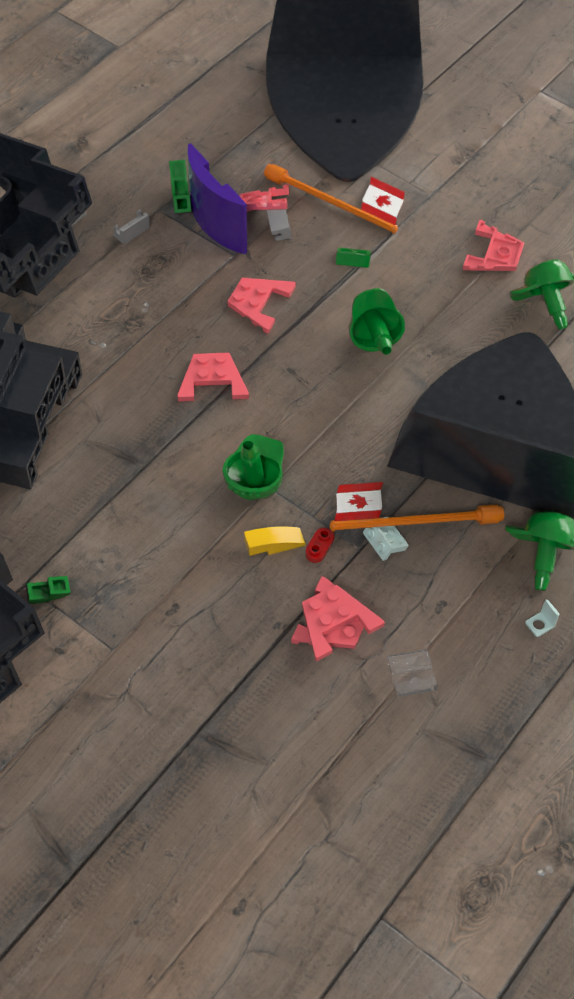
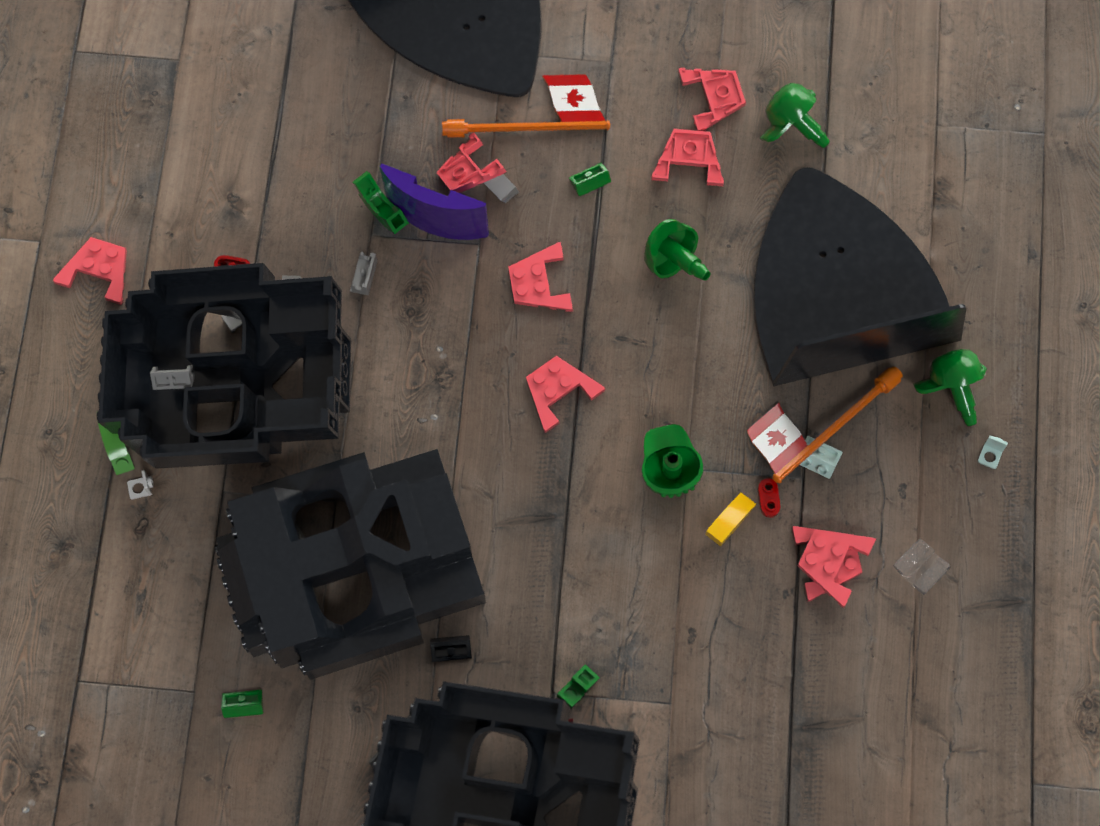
camera: 30 degrees left, 15 degrees up
(445, 274) = (690, 149): none -> coral wing

